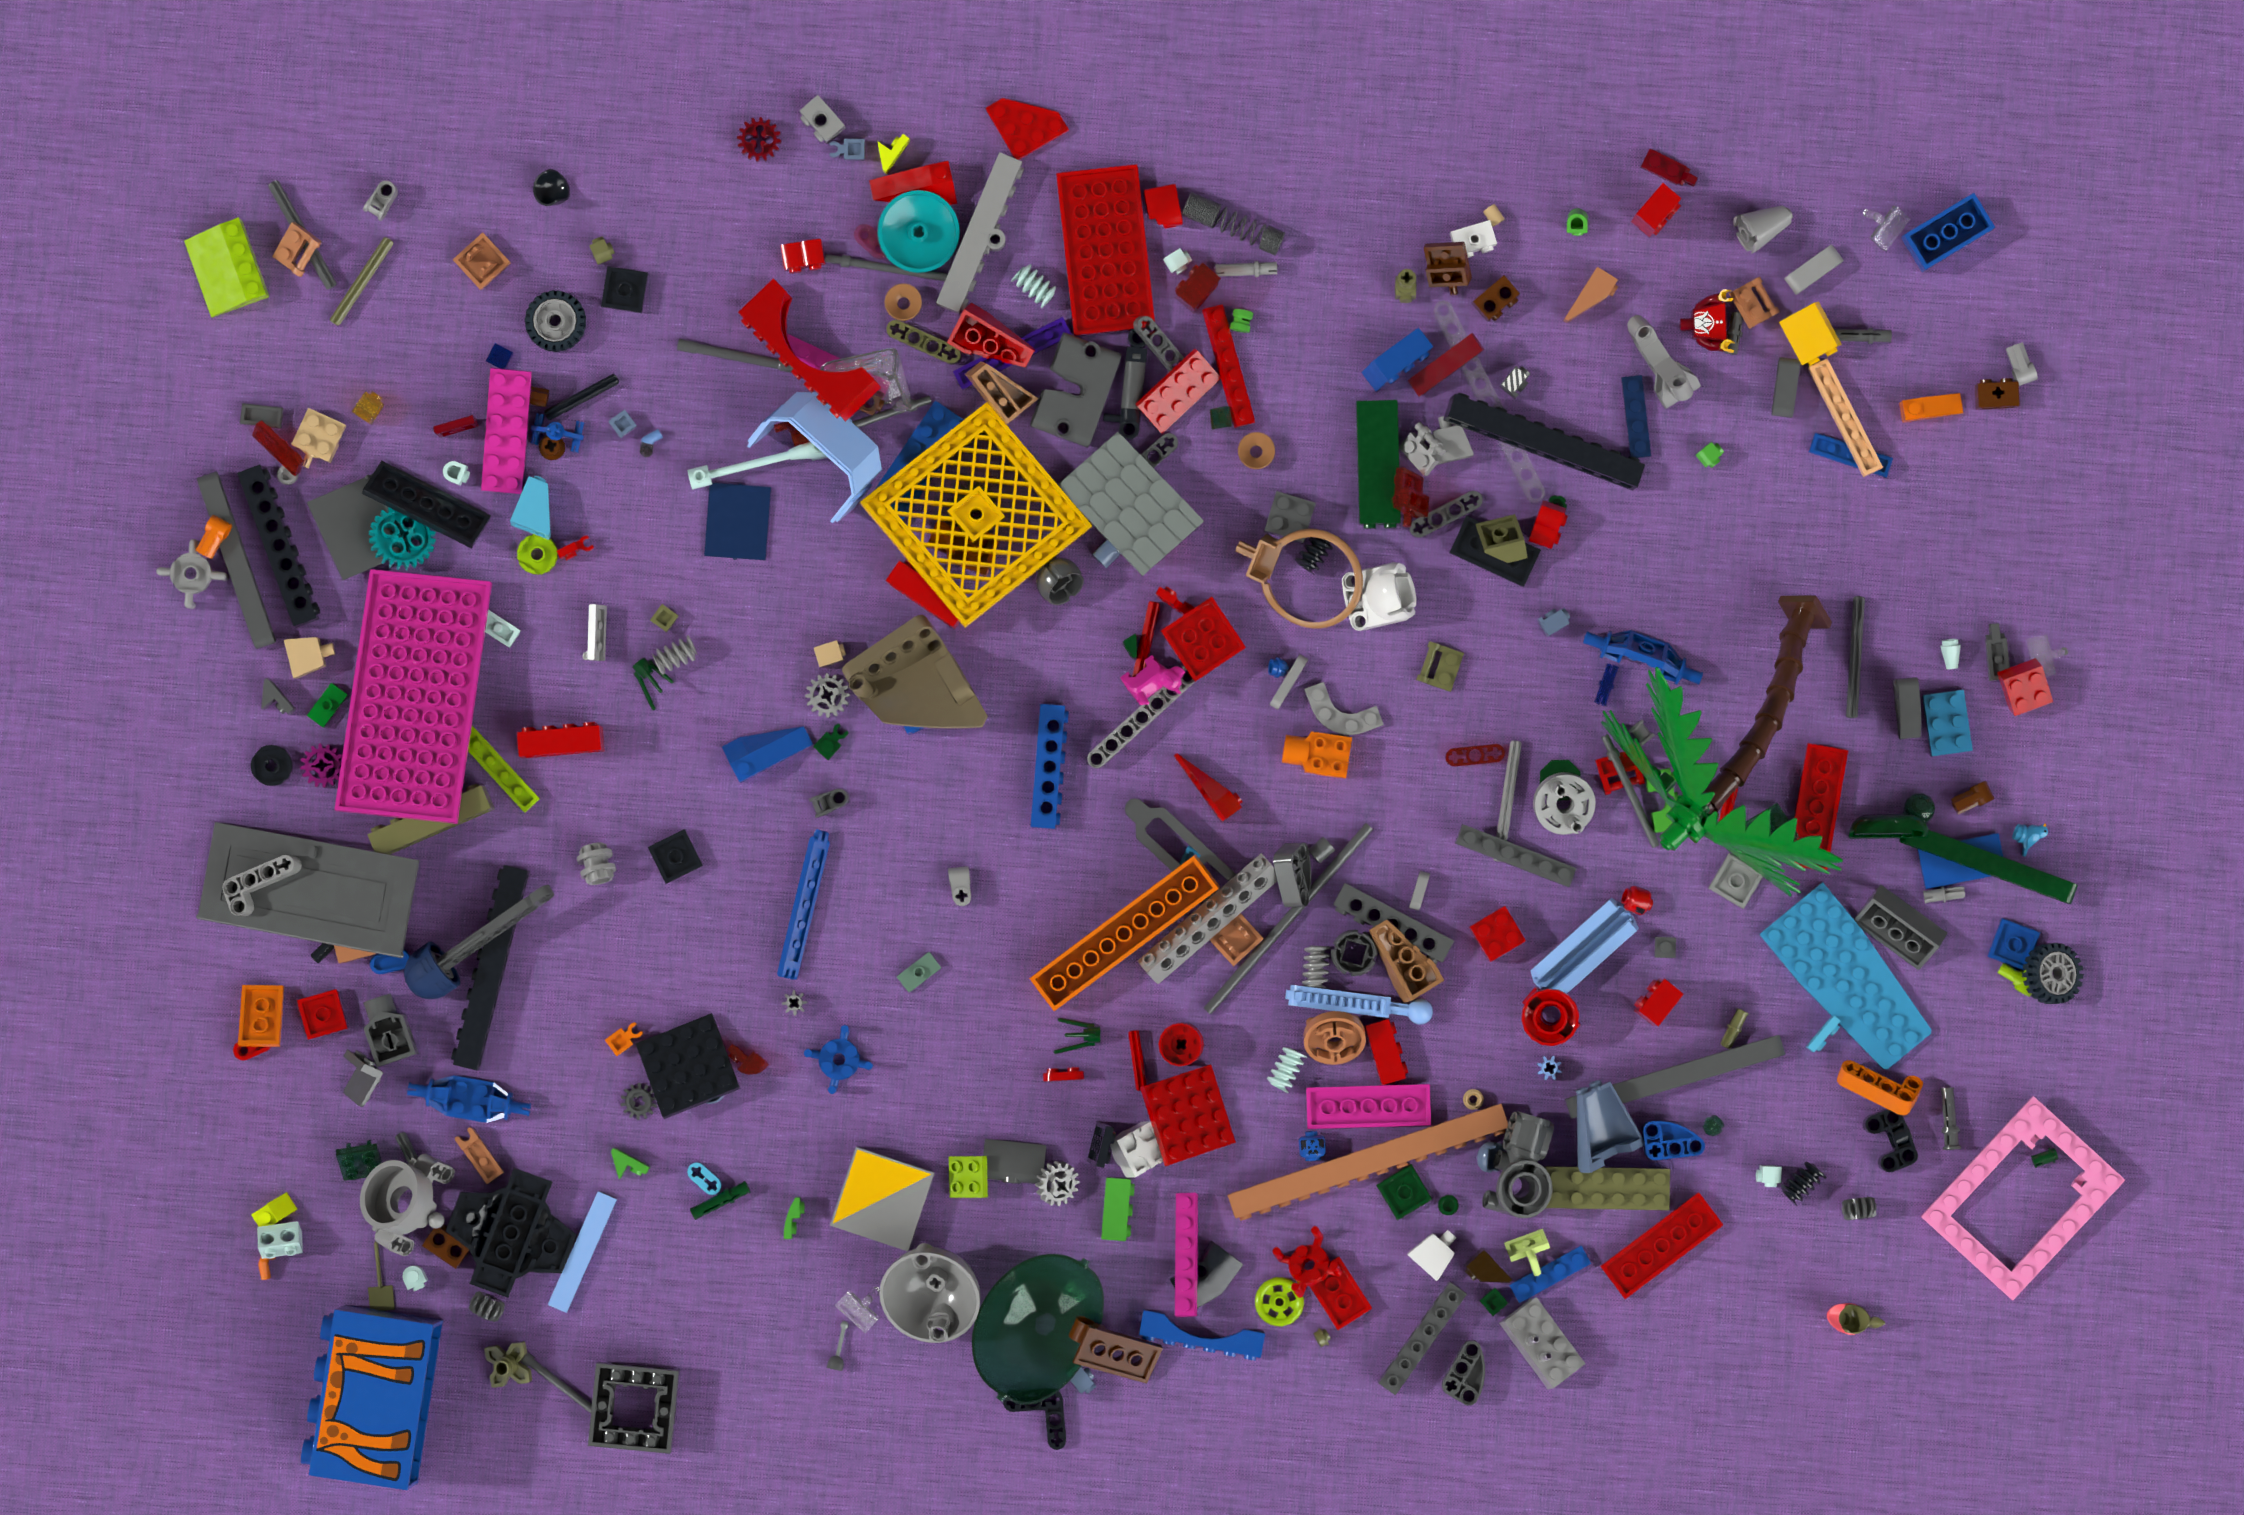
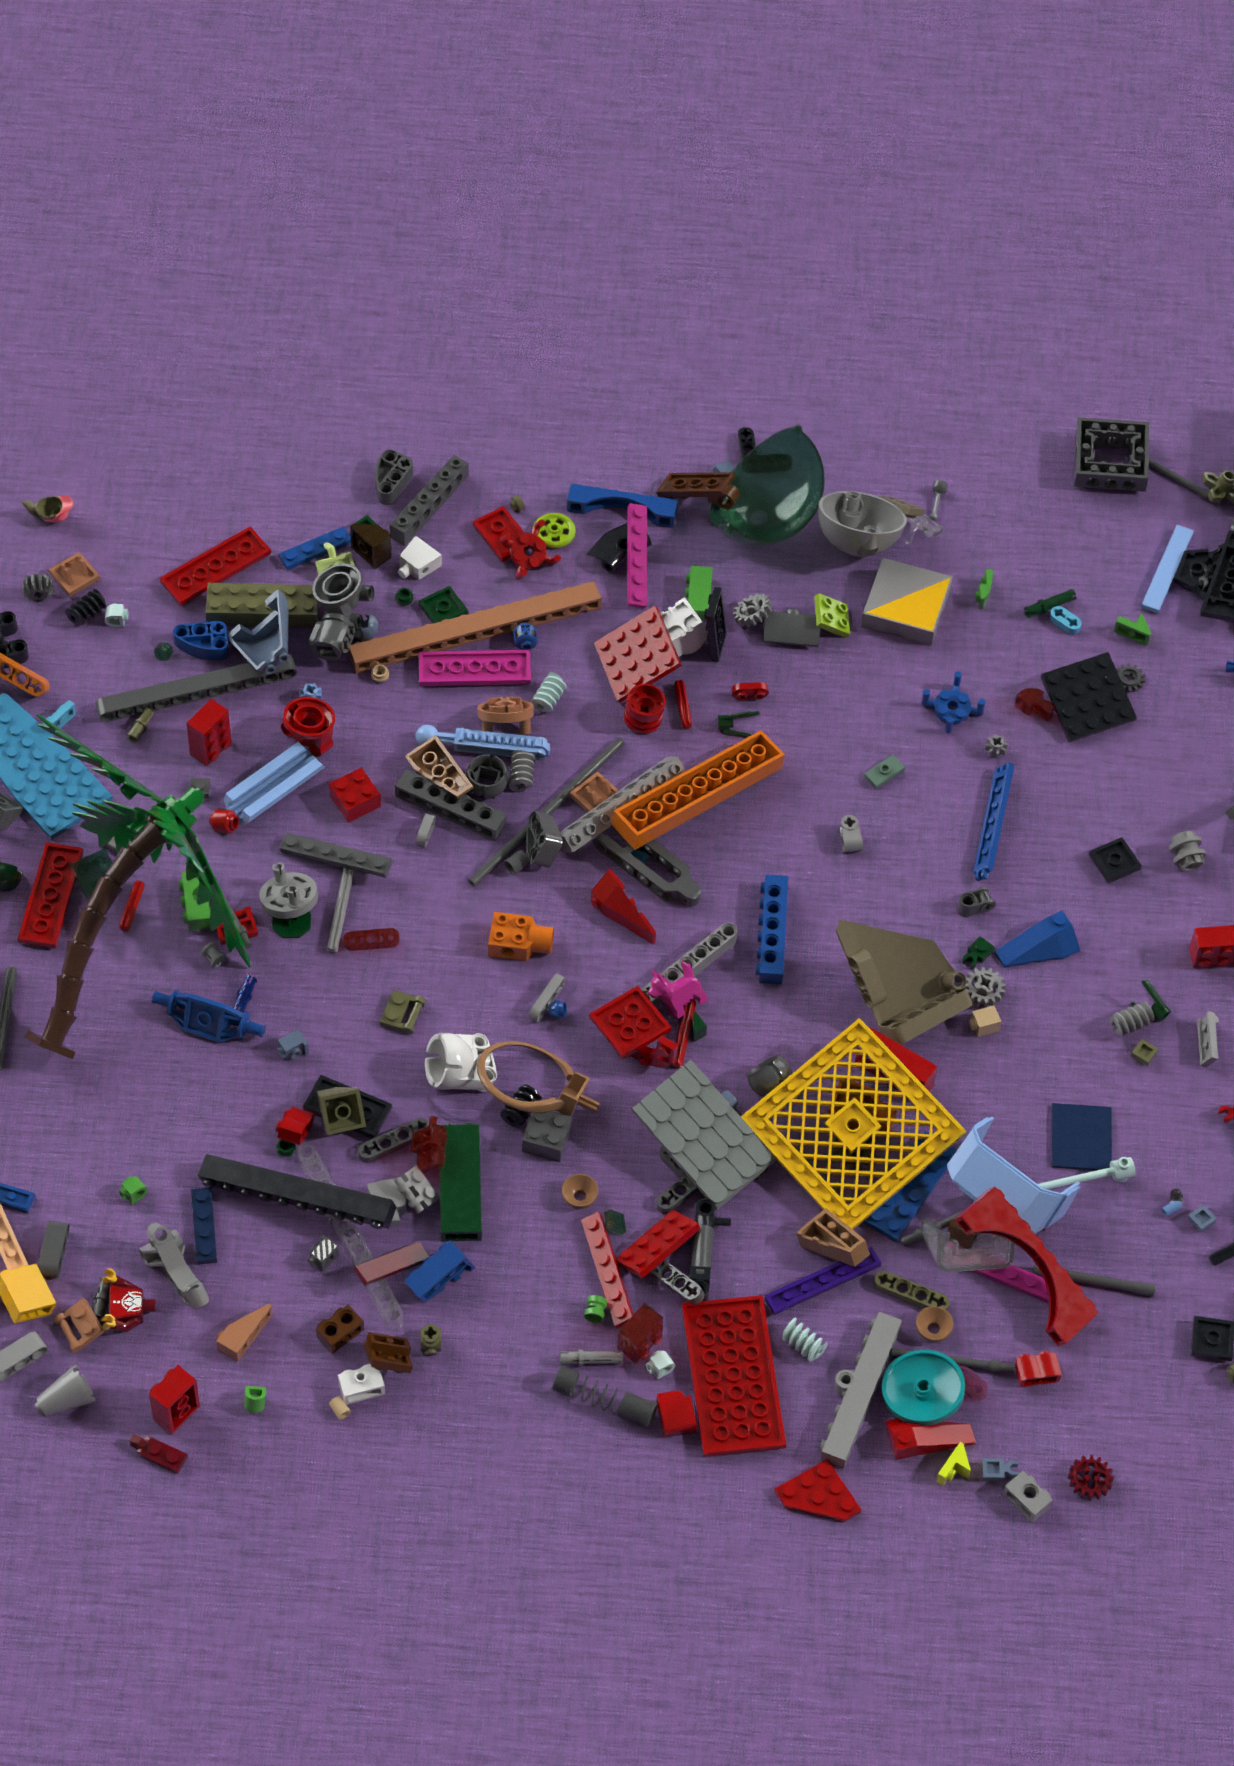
camera: 175 degrees right, 30 degrees down
(621, 1041) = (1149, 719): orange plate -> none
(882, 1327) = (908, 509): none -> dark tan plate
(986, 336) = (853, 1294): red wedge -> none
(1094, 378) = (753, 1226): dark grey connector -> none
(1337, 721) = (498, 967): light grey plate -> none
(1386, 1051) = (458, 705): red brick -> none
(1542, 1343) = (324, 493): light grey piece -> none
(1819, 1232) = (74, 574): none -> nougat plate

